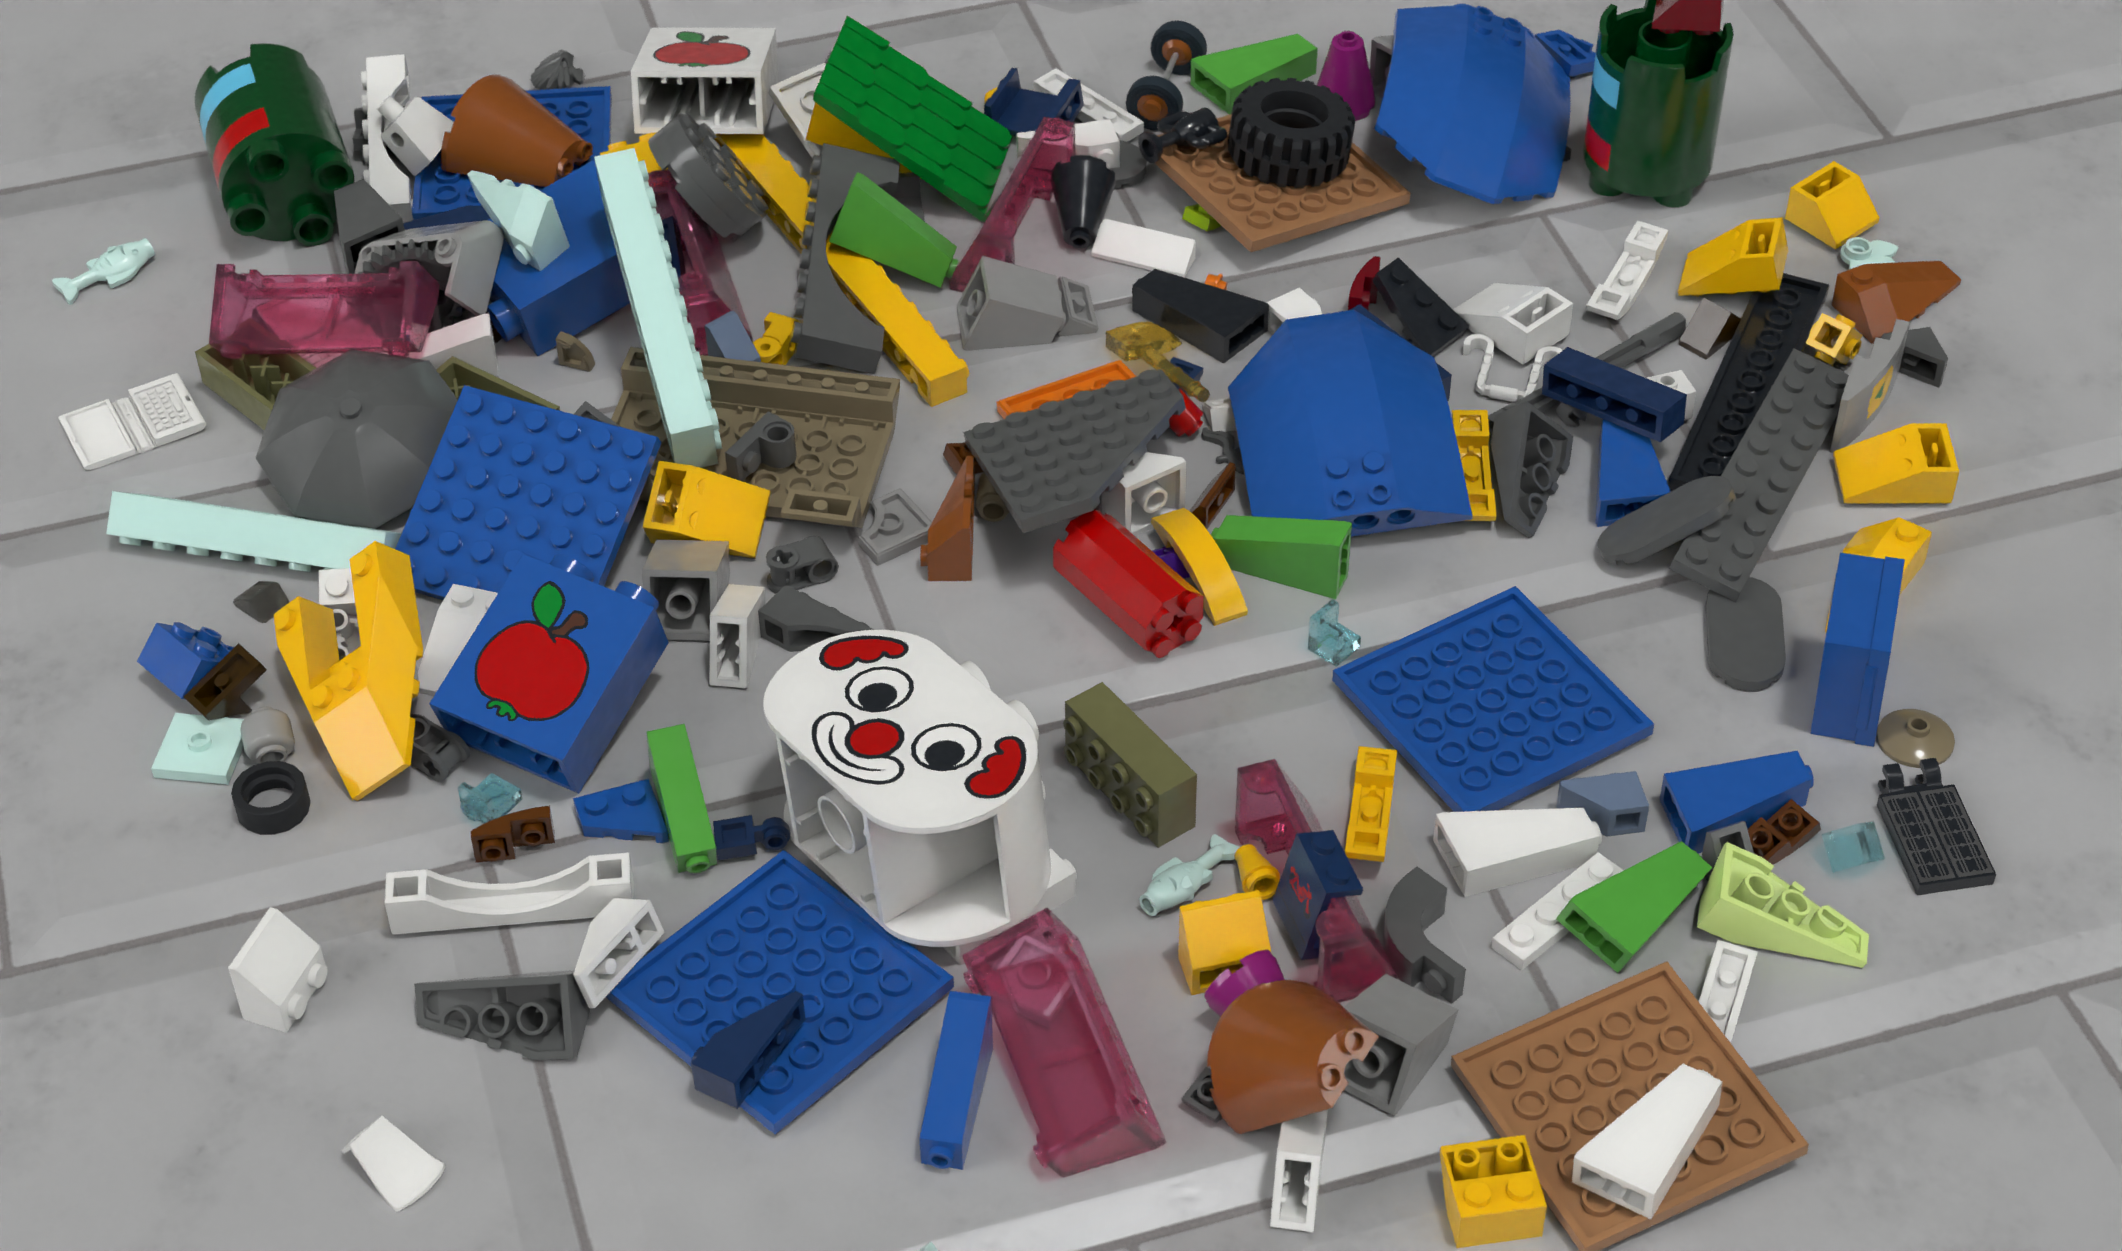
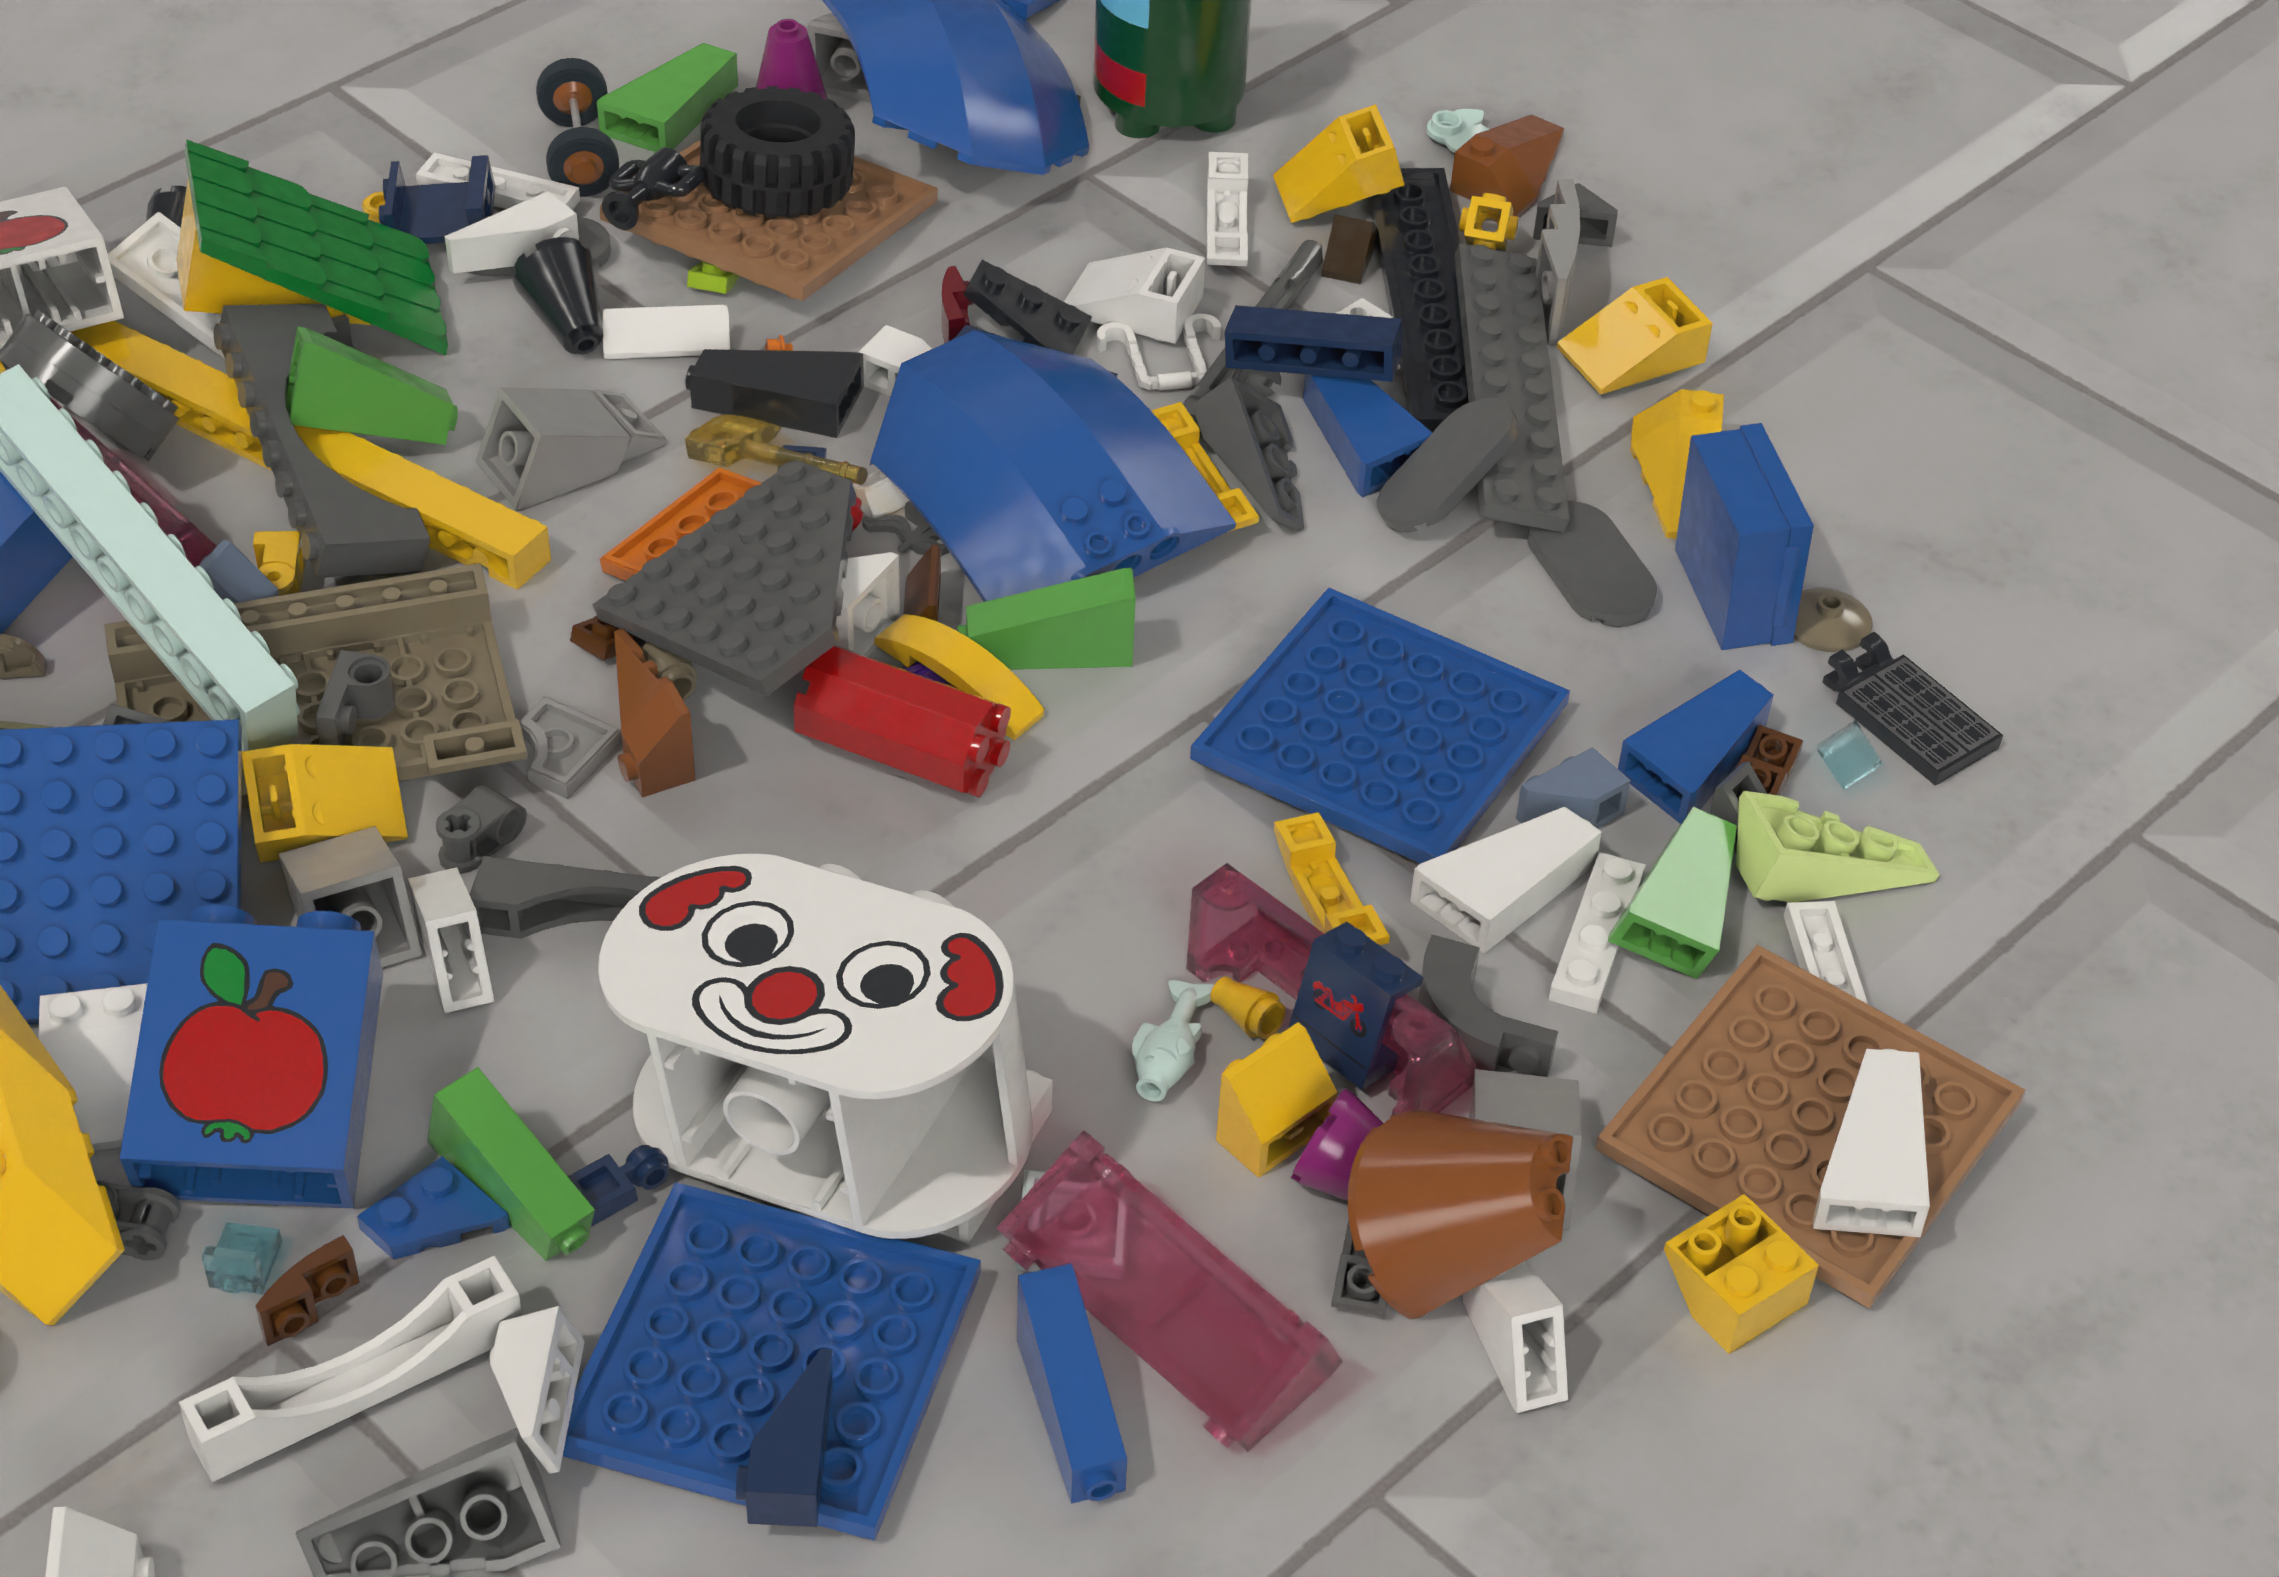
camera: 30 degrees left, 0 degrees up
(1027, 180) = (478, 292): clear pink windscreen -> none
(1130, 764) = (1054, 932): olive brick -> none
(1330, 638) = (1162, 712): clear light blue panel -> none
(1831, 205) = (1397, 81): yellow slope -> none

